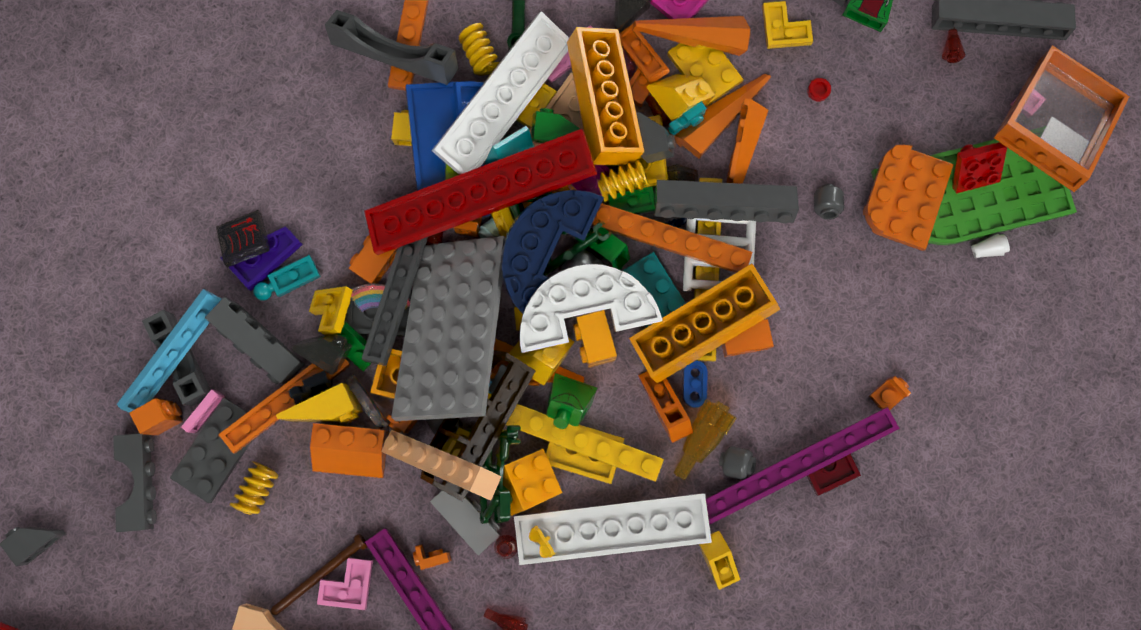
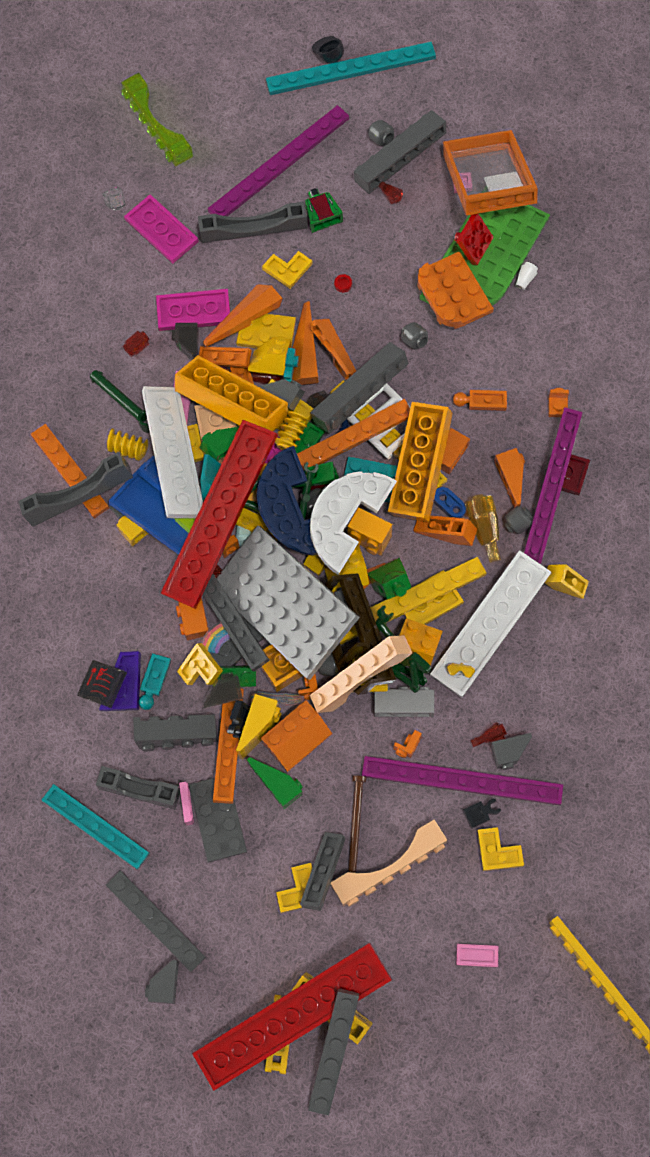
camera: 45 degrees left, 10 degrees down
(81, 482) = (155, 921): none -> dark grey plate
(114, 349) = (95, 827): none -> teal plate
(137, 511) = (169, 869): dark grey arch -> none
(156, 416) = (163, 830): orange brick -> none
(169, 353) = (133, 785): medium azure plate -> none
(216, 588) = (291, 898): none -> yellow plate
(244, 589) = (322, 871): none -> dark grey plate
(255, 489) = (265, 814): yellow piece -> none
(291, 475) = (278, 783): none -> green slope
(349, 593) = (384, 812): bright pink plate -> none
(511, 542) = (443, 700): clear red cone -> none
(780, 411) = (510, 467): none -> orange slope
(825, 321) = (482, 400): none -> orange plate

